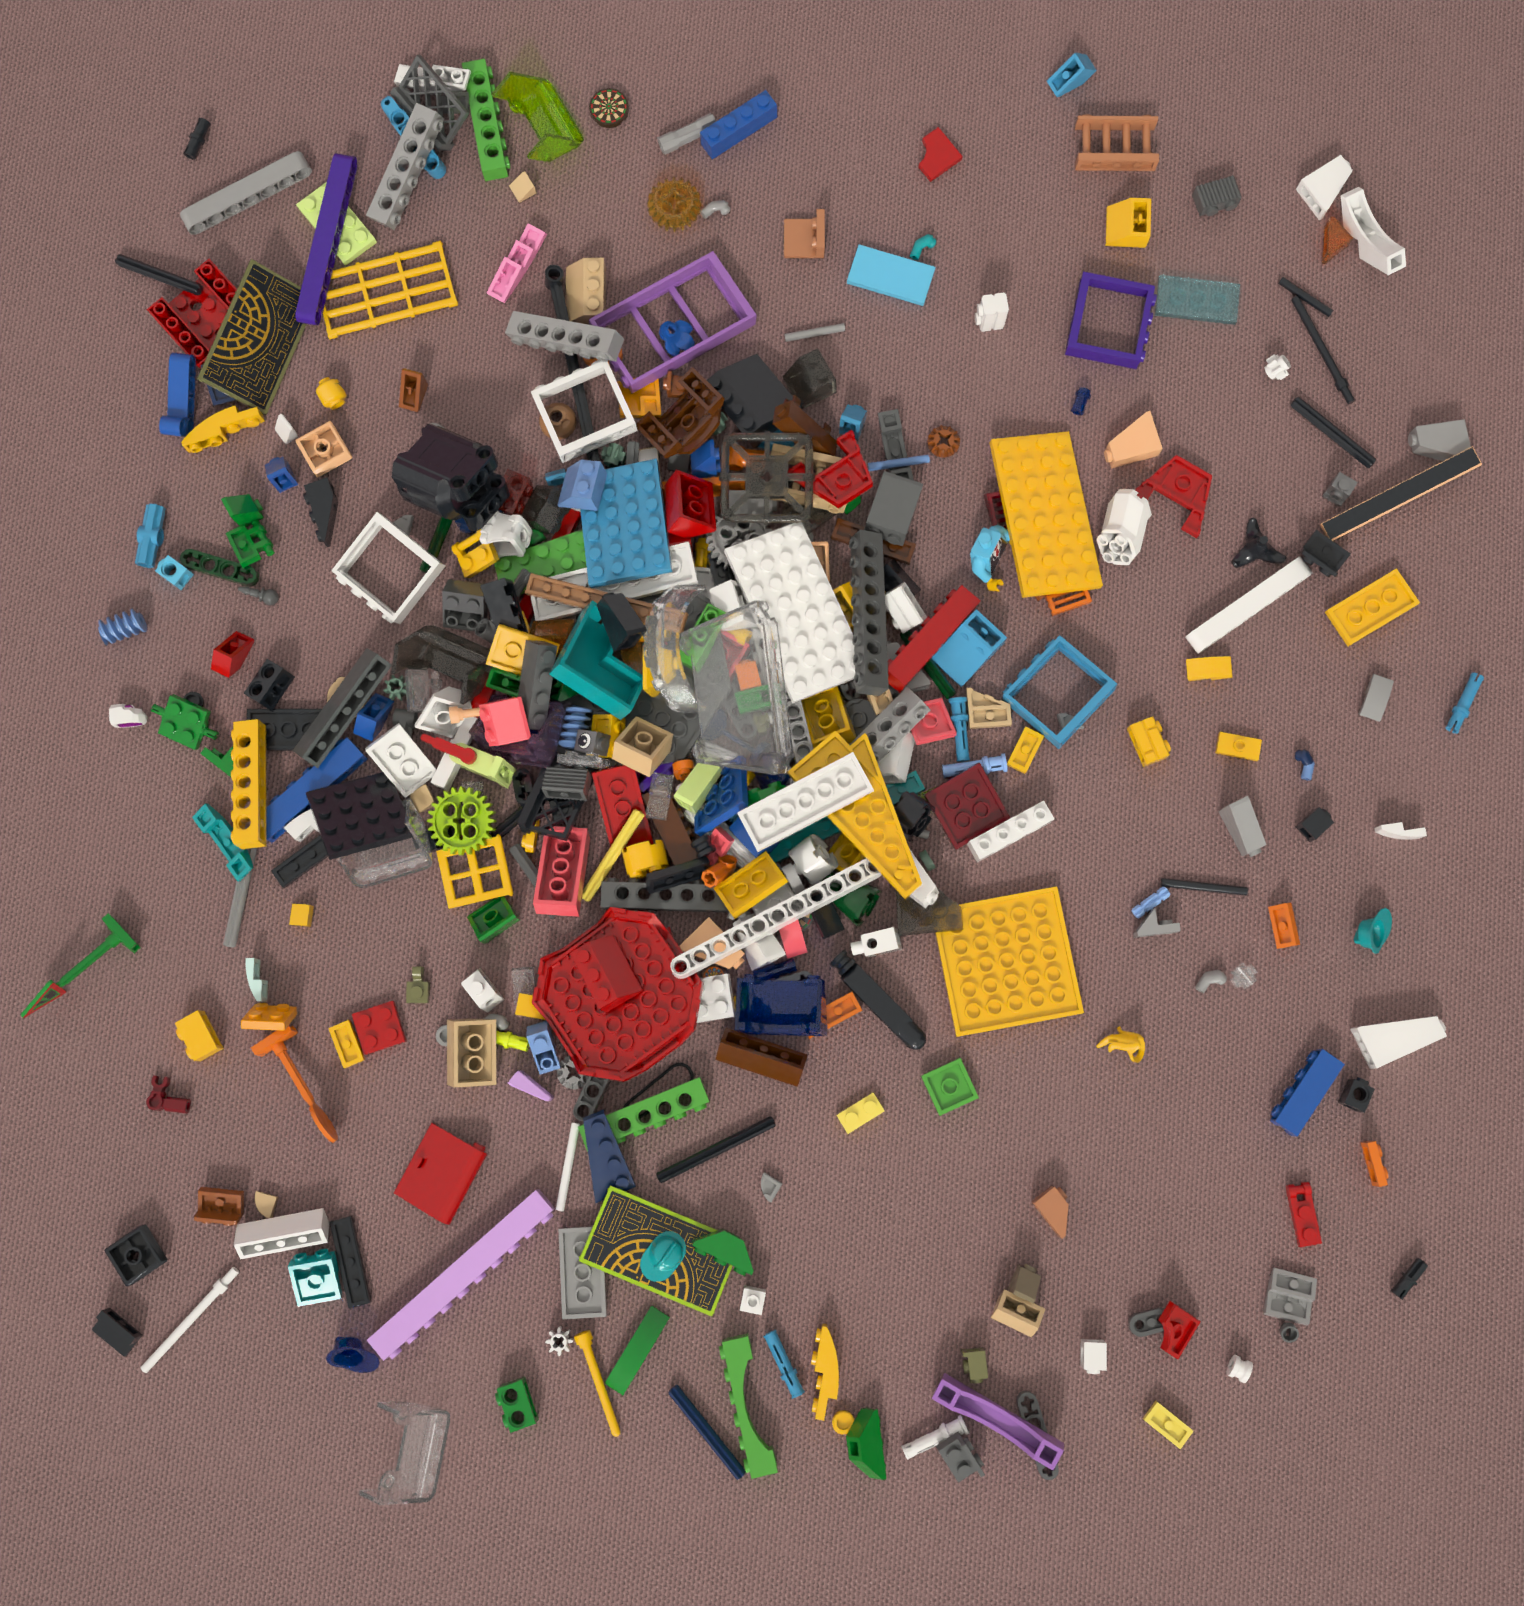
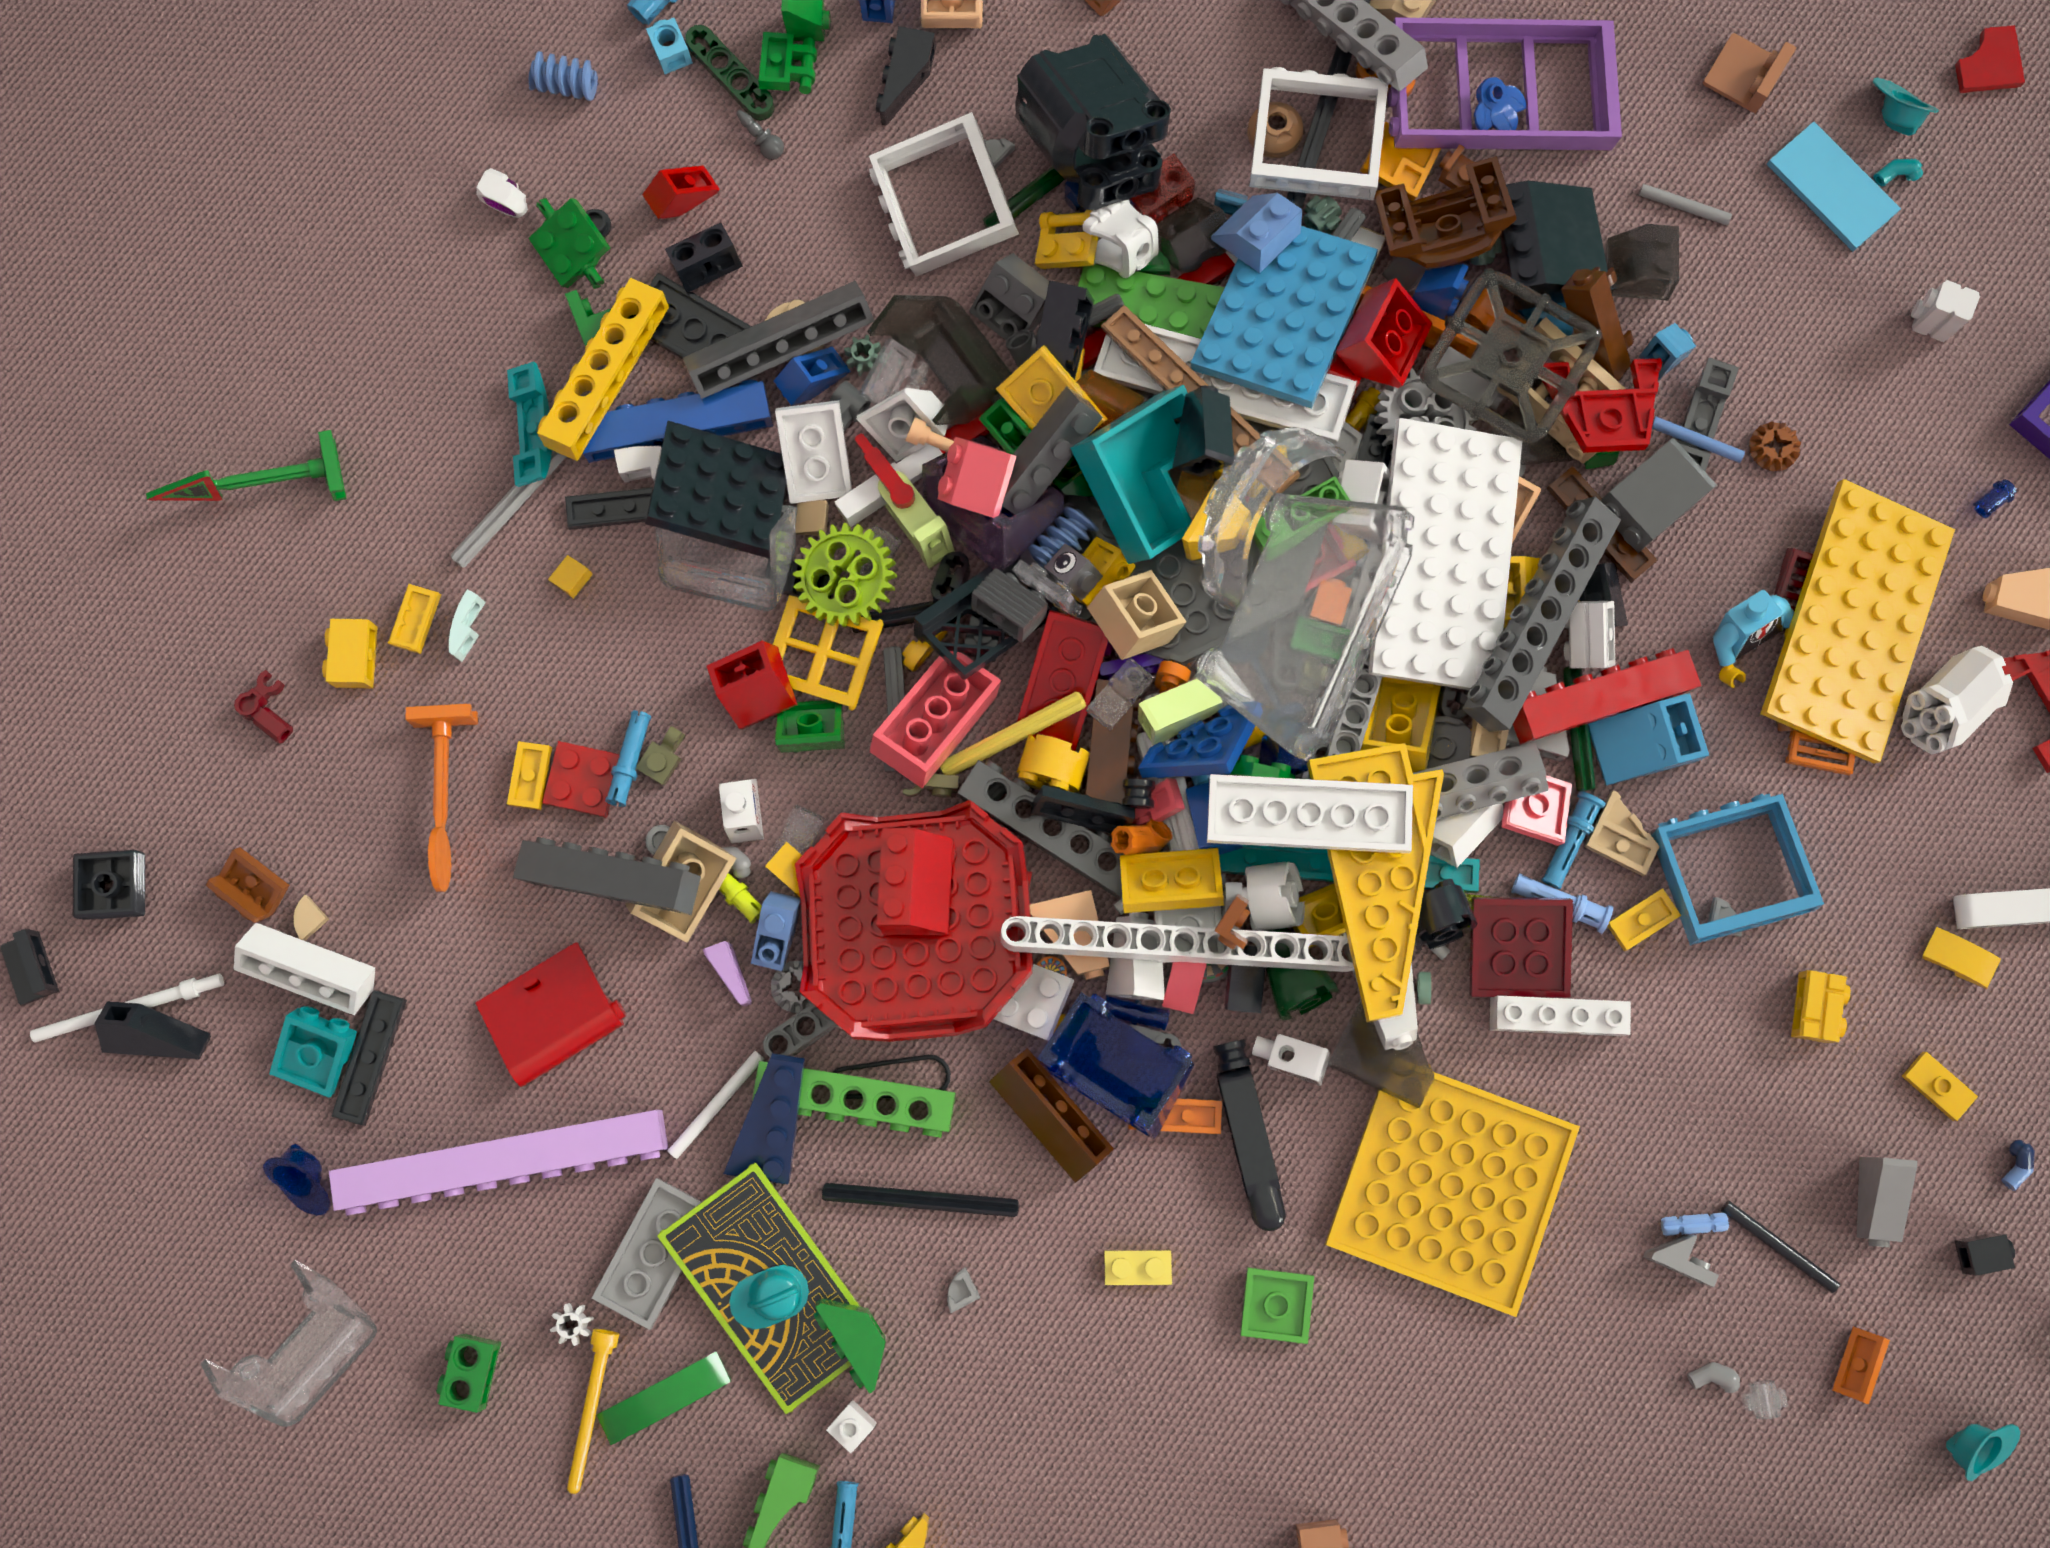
camera: 30 degrees right, 0 degrees up
(209, 1326) = (146, 1032): none -> black slope
(224, 993) = (414, 618): none -> yellow plate
(269, 1017) = (452, 682): light orange plate -> none
(401, 1008) = (624, 771): none -> dark azure pin
(428, 1074) = (607, 876): none -> dark grey brick
(445, 914) = (752, 684): none -> red slope
(587, 908) = (939, 784): none -> olive plate
(798, 883) = (1234, 916): none -> dark orange bracket
(903, 209) = (1902, 109): none -> teal piece
(1125, 1041) = (1550, 1389): yellow piece -> none

